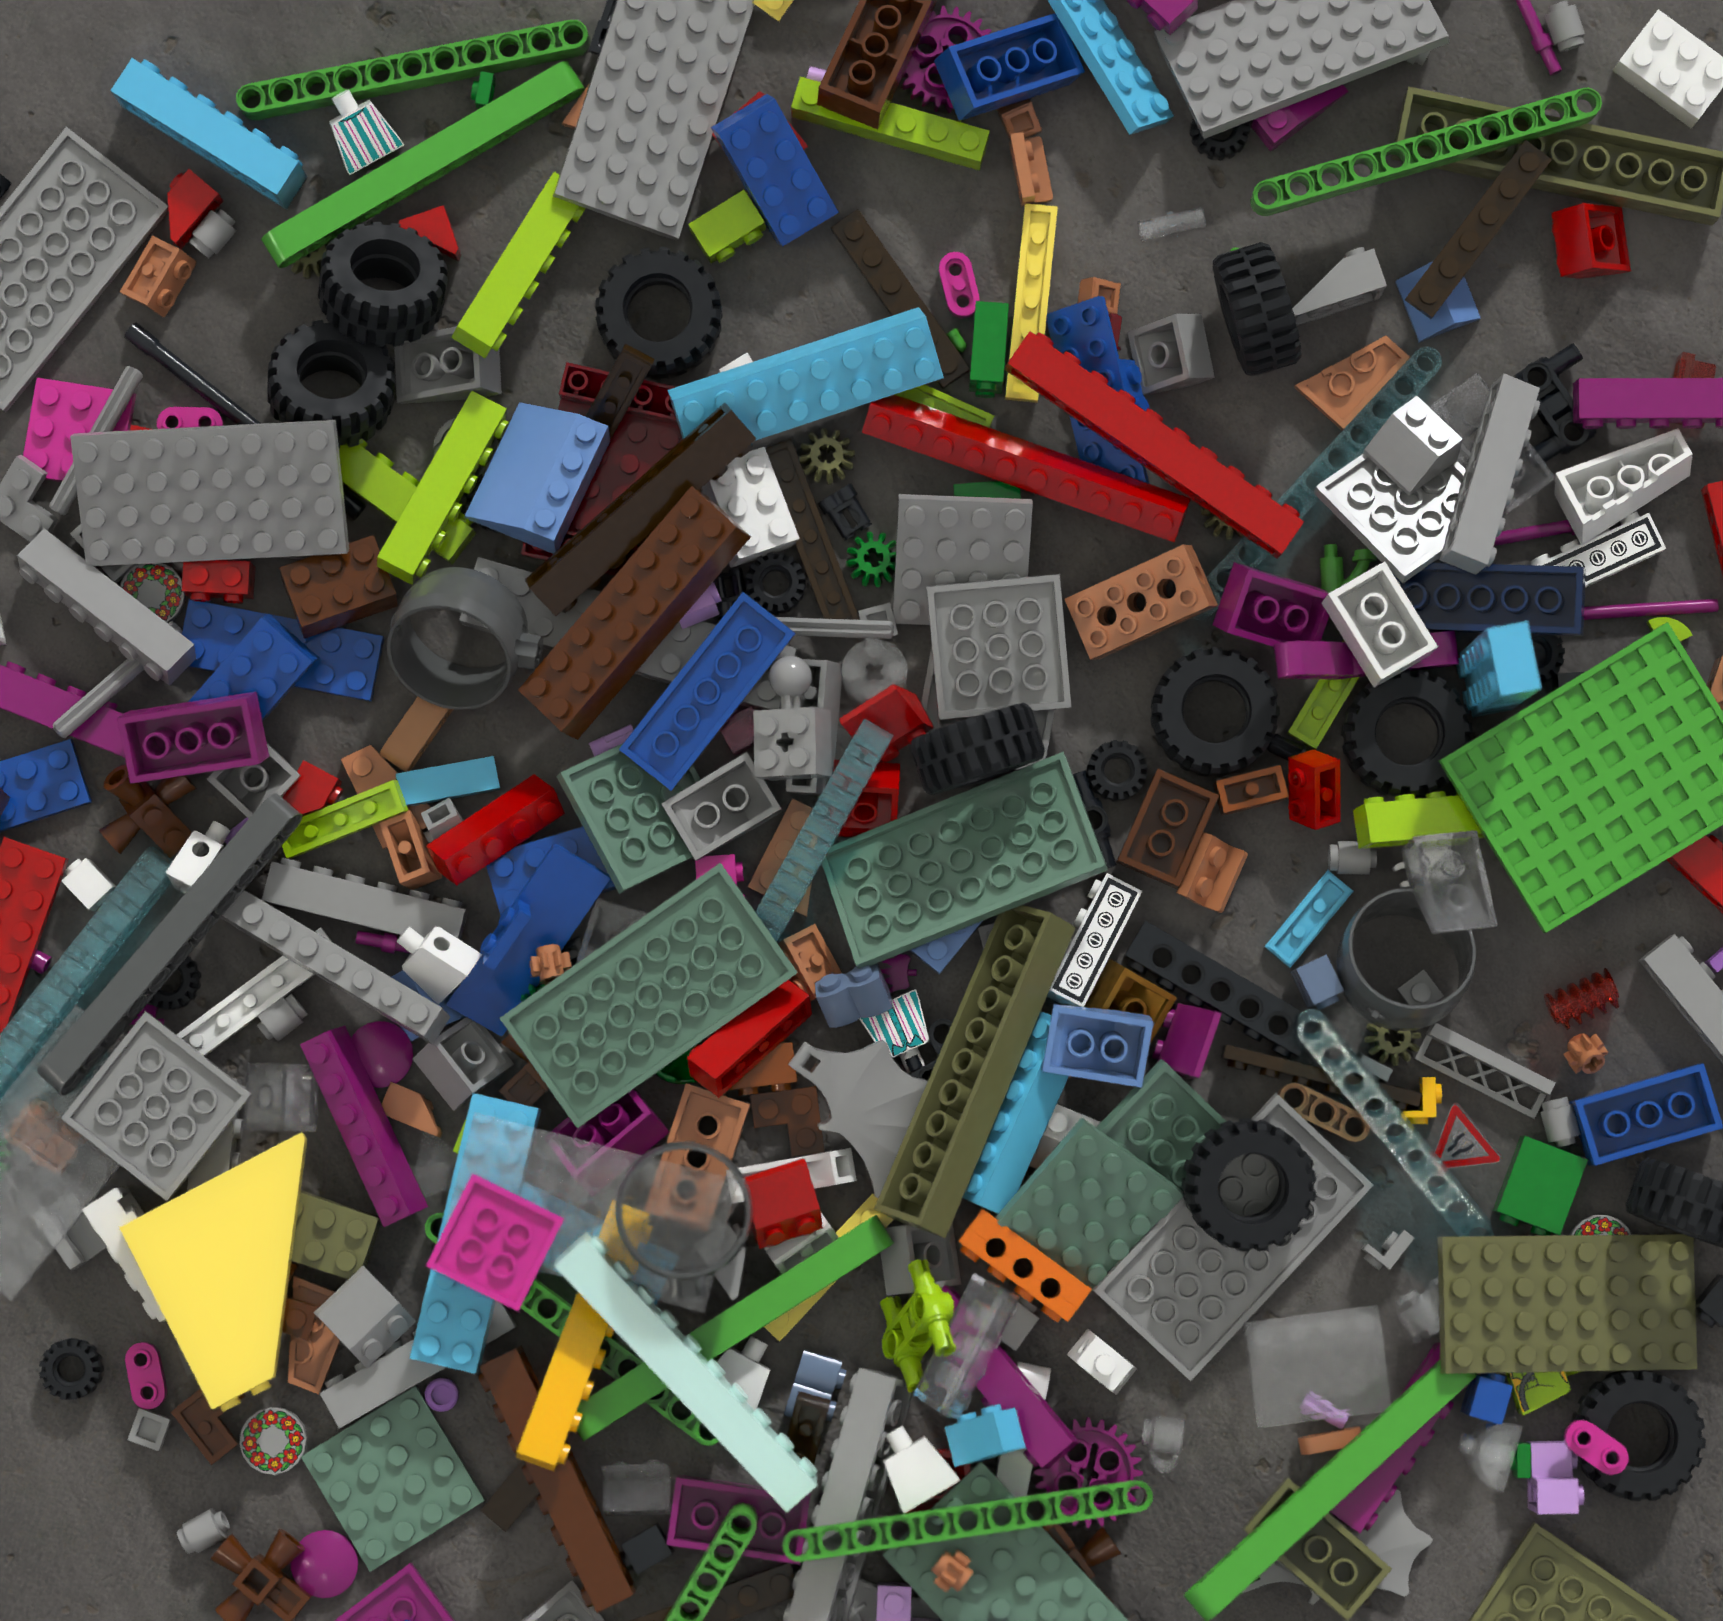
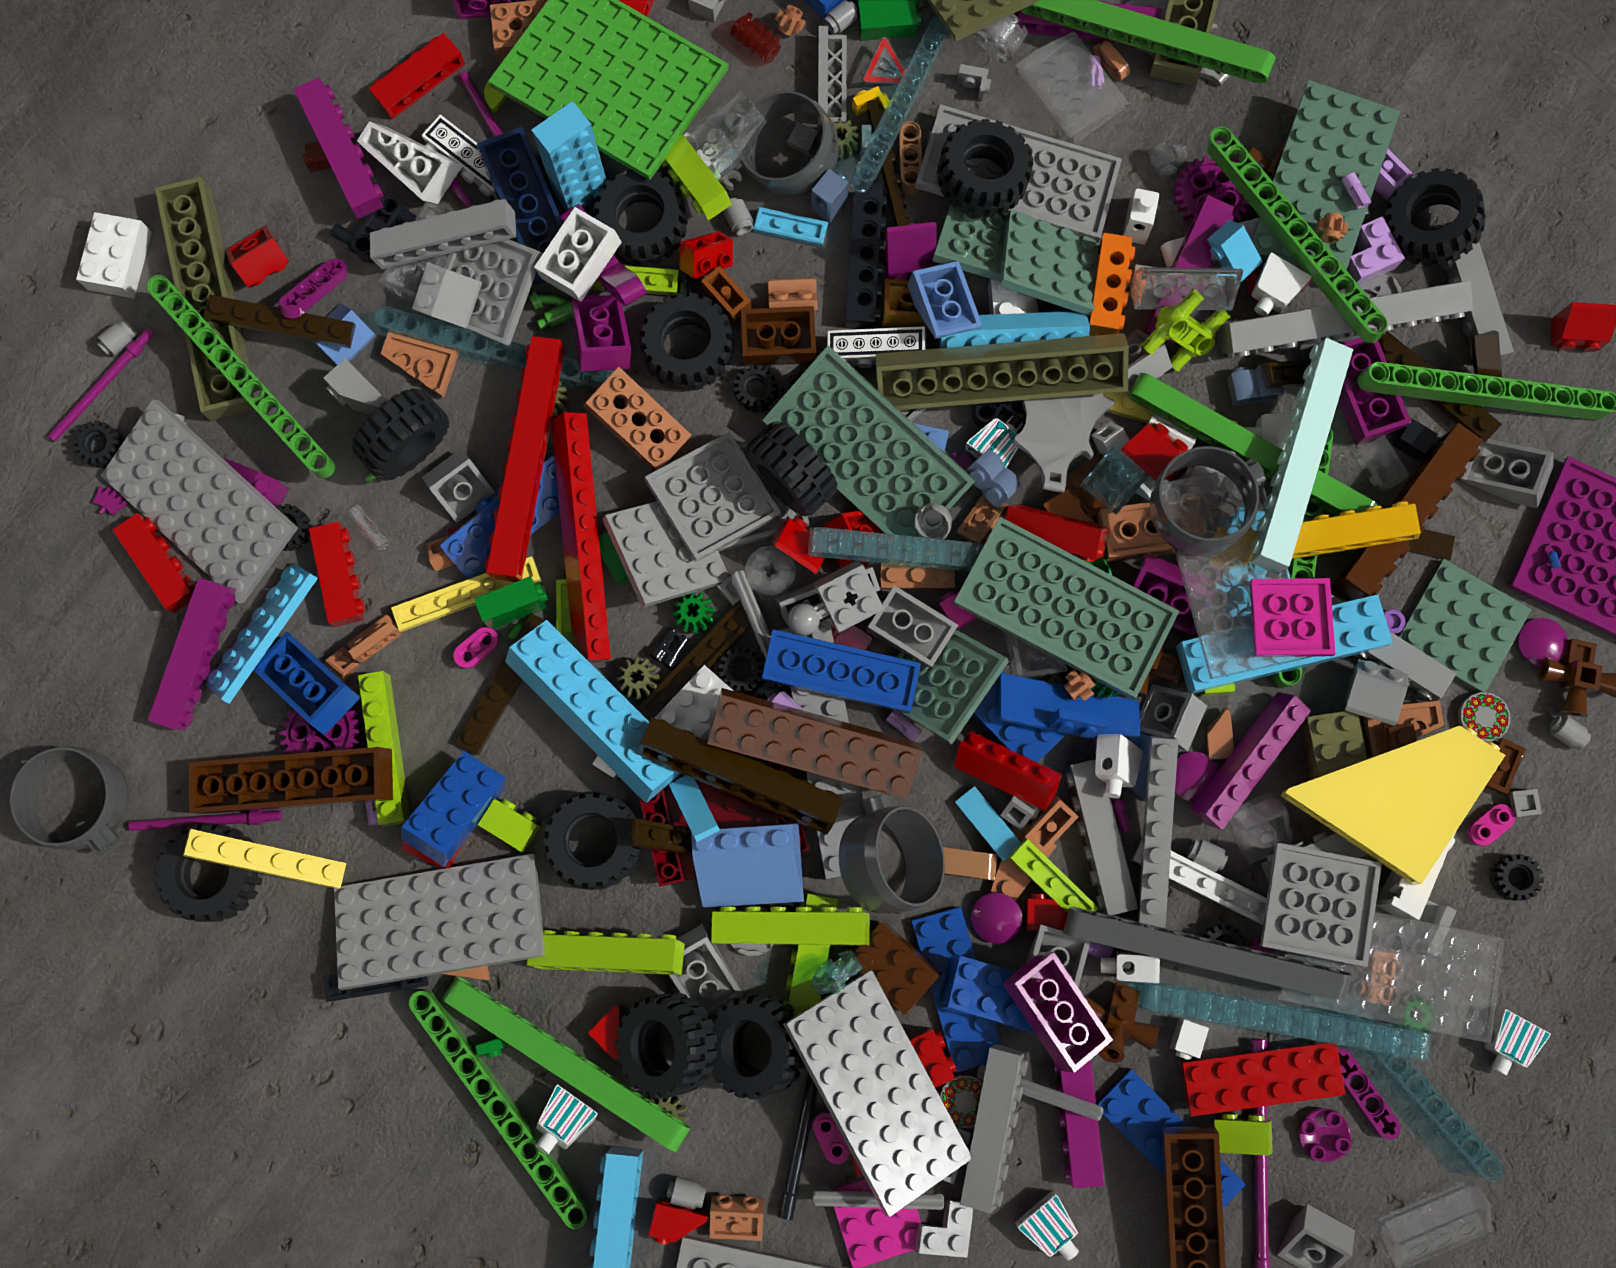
camera: 120 degrees left, 5 degrees down
(336, 735) = (996, 918): none -> magenta dish
(364, 511) = (832, 975): none -> clear light blue plate
(631, 442) = (694, 807): none -> medium azure tile
(774, 1135) = (1114, 480): none -> clear light blue plate
(833, 893) = (933, 521): none -> light grey hair
(1131, 161) = (336, 574): none -> red brick
(1509, 286) = (294, 304): none -> magenta beam

